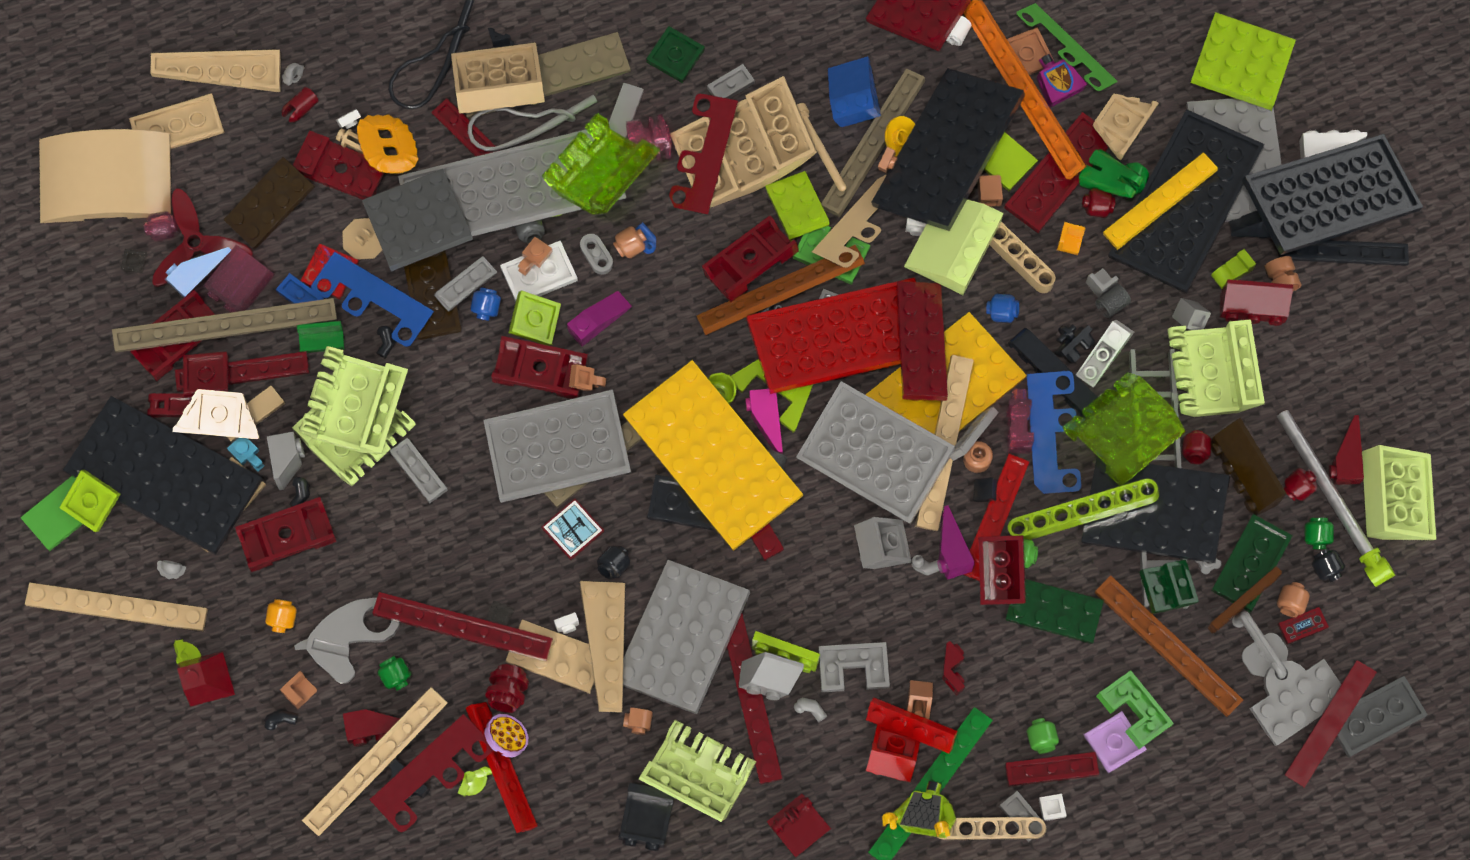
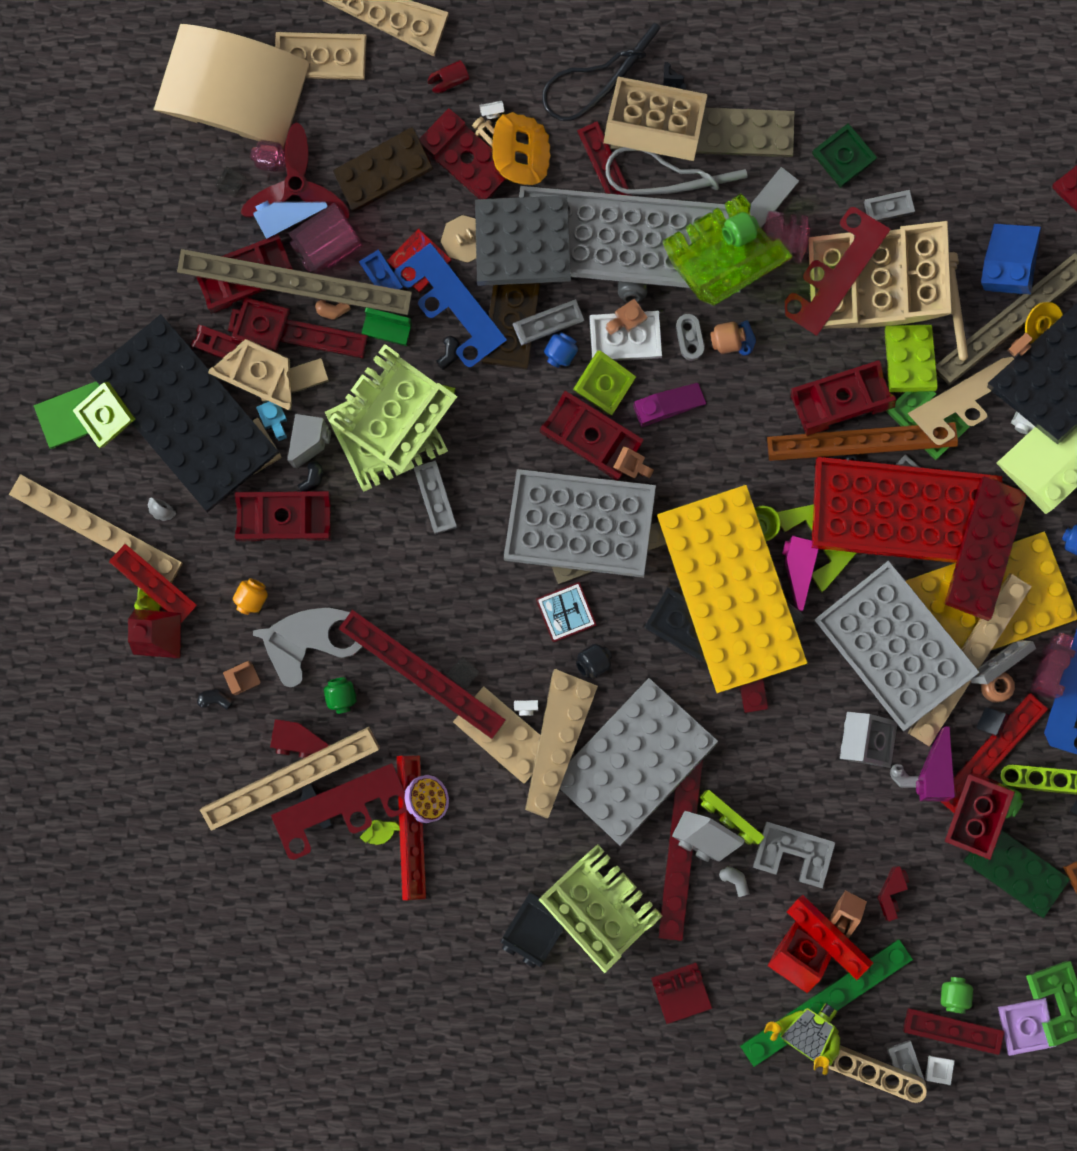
camera: 25 degrees right, 10 degrees up
(185, 633) = (151, 582): none -> red plate
(265, 341) = (331, 311): none -> nougat arm
(291, 71) = (452, 39): light grey piece -> none
(506, 688) = (444, 751): dark red piece -> none
(606, 143) = (740, 229): none -> bright green head
(638, 720) = (561, 831): nougat plate -> none

